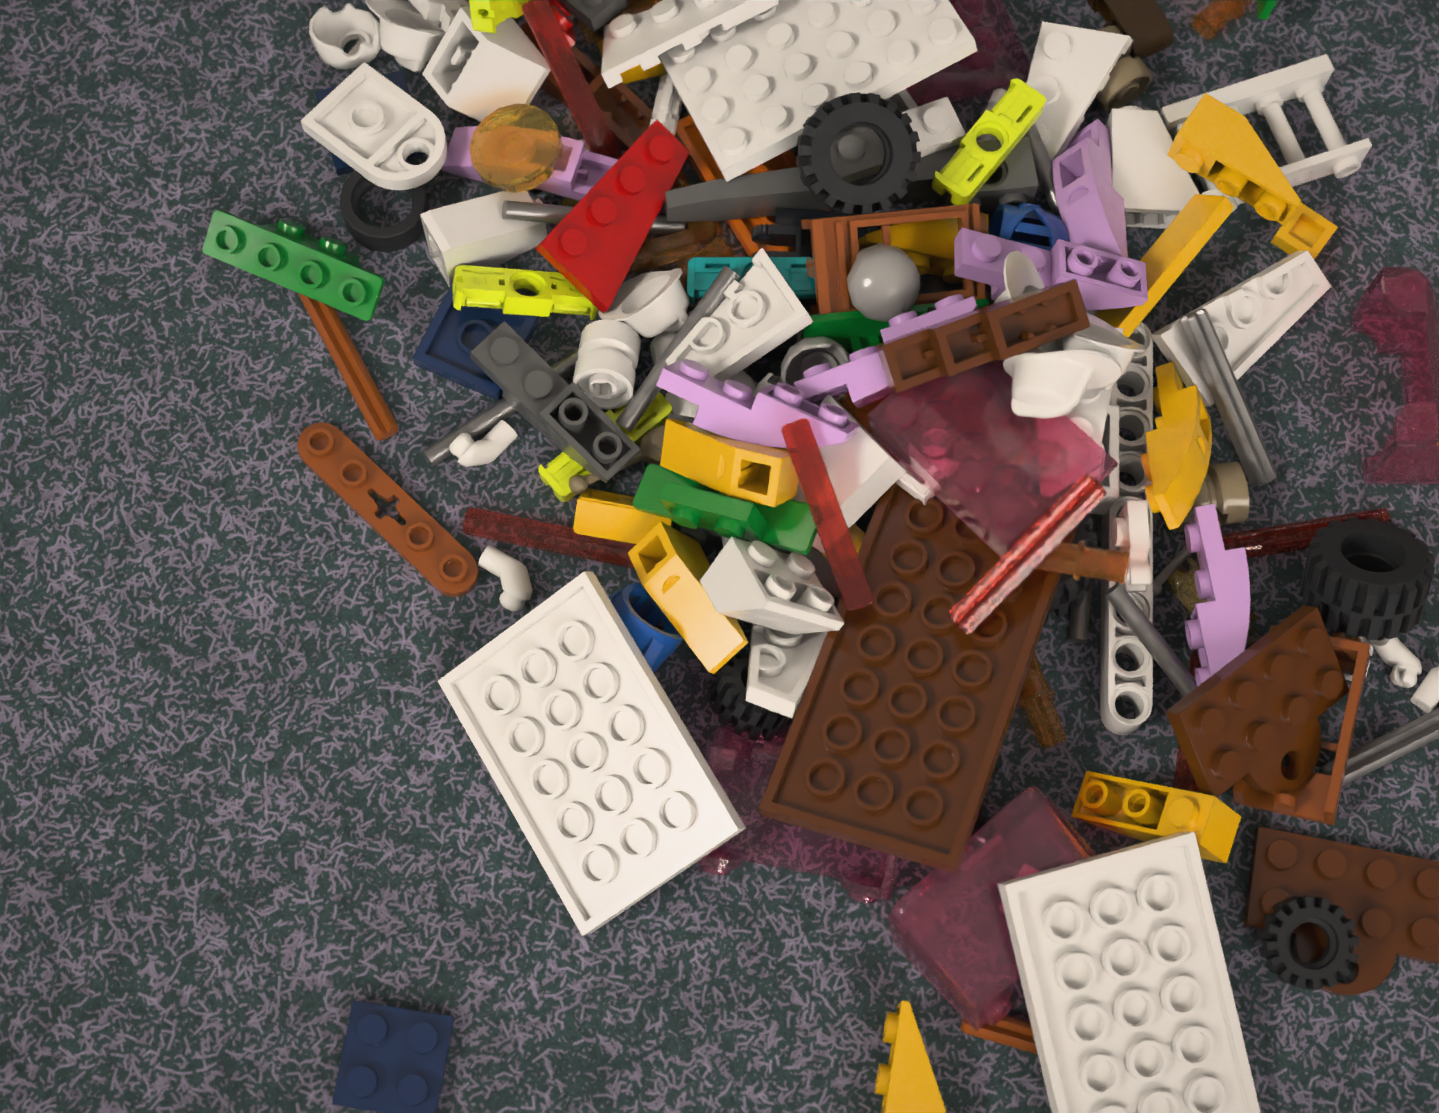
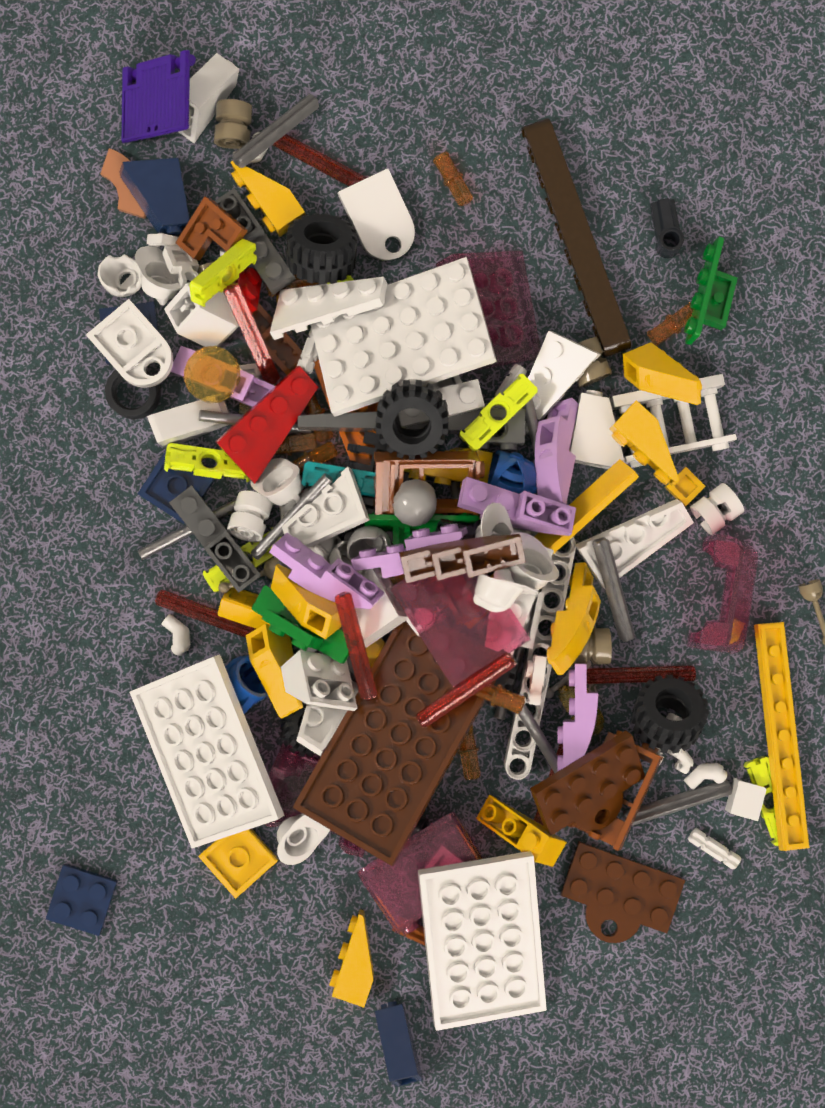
camera: 15 degrees right, 15 degrees up
(296, 261) = (75, 422): green bracket -> none
(352, 368) = (100, 486): dark orange axle -> none
(419, 541) = (96, 561): dark orange piece -> none
(484, 450) = (174, 555): white arm -> none
(668, 943) = (238, 860): none -> yellow plate
(777, 877) = (299, 838): none -> white piece
(1234, 62) = (660, 374): none -> yellow slope
(1338, 936) = (593, 931): black tyre -> none
(1363, 253) = (707, 508): none -> white wheel

